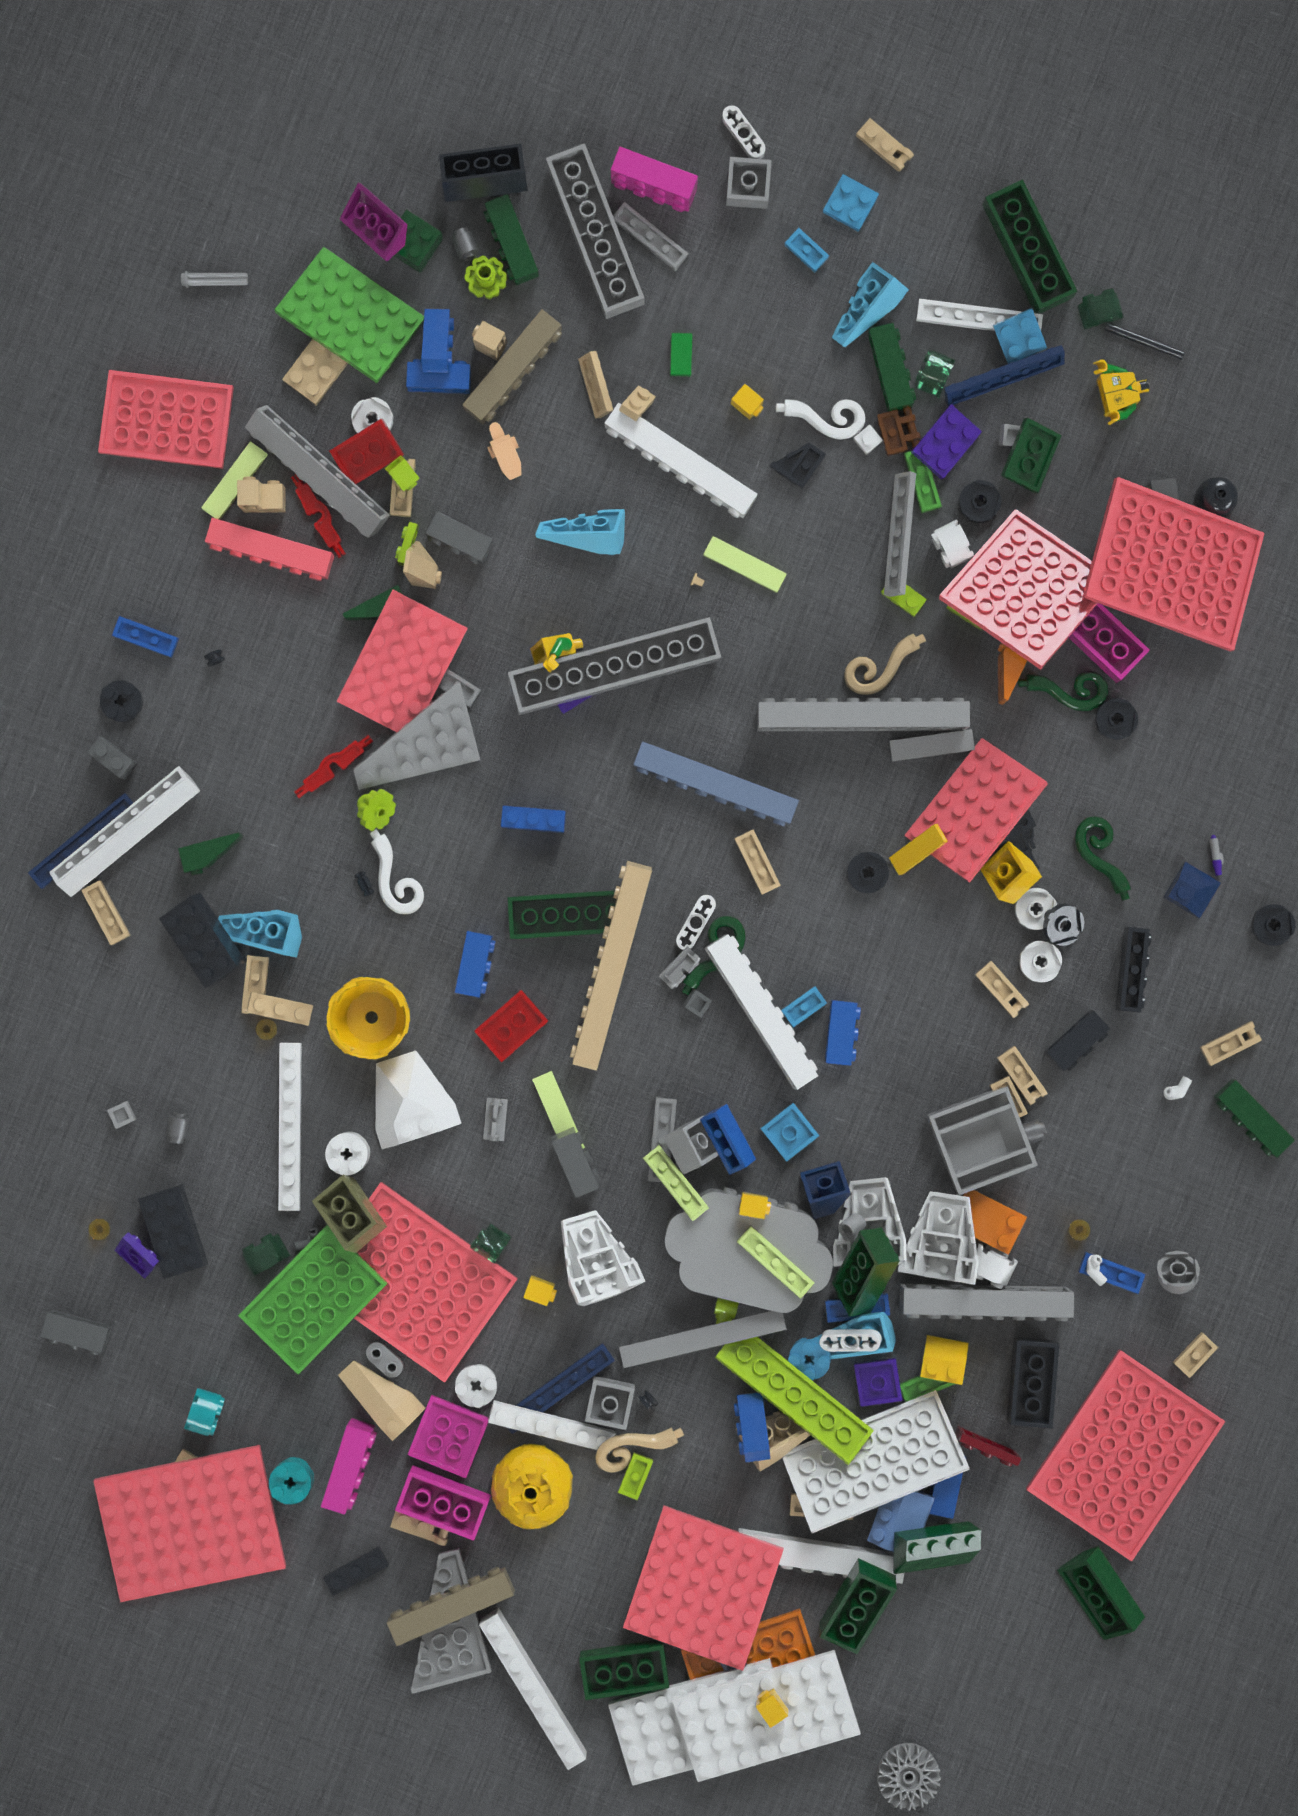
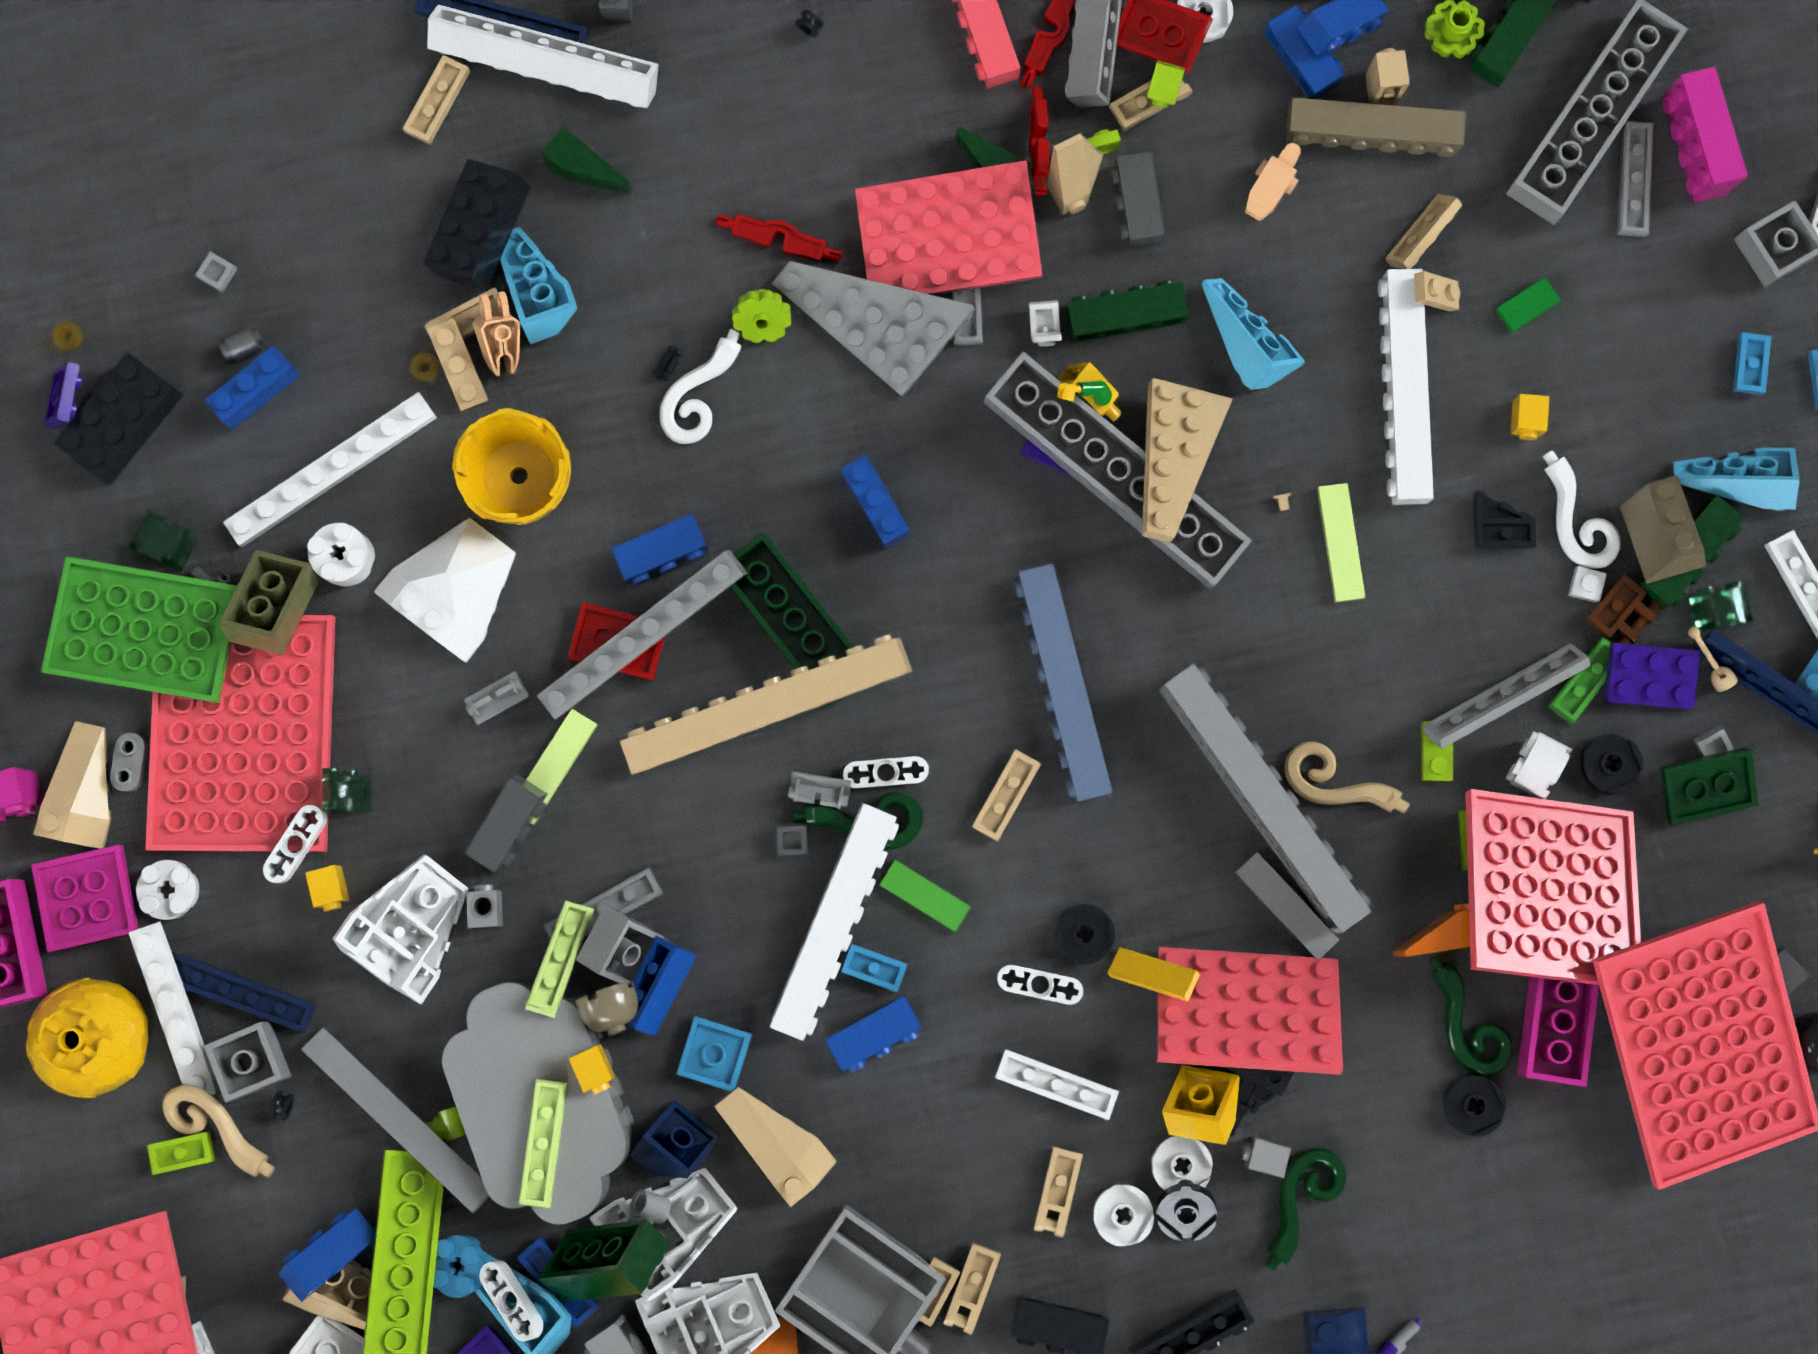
camera: 55 degrees right, 5 degrees down
(209, 1139) = (252, 387): none -> blue brick
(279, 972) = (498, 334): none -> light nougat hinge
(388, 576) = (1038, 146): none -> red piece
(495, 645) = (1044, 322): none -> white bracket
(513, 1305) = (288, 866): none -> white beam
(520, 1008) = (642, 634): none -> light grey brick
(522, 593) = (1126, 311): none -> dark green brick
(619, 1216) = (491, 919): none -> light grey brick
(623, 619) = (1178, 442): none -> tan wing
(725, 1173) = (609, 1008): none -> dark tan cylinder
(782, 949) = (925, 895): none -> bright green tile
(868, 376) = (1663, 530): none -> dark tan slope
(873, 1129) = (782, 1150): none -> tan wedge
(893, 911) = (1060, 996): none -> white beam
(941, 948) = (1057, 1084): none -> white plate
(974, 402) = (1721, 677): none -> tan hinge
(1063, 857) = (1266, 1156): none -> light grey brick

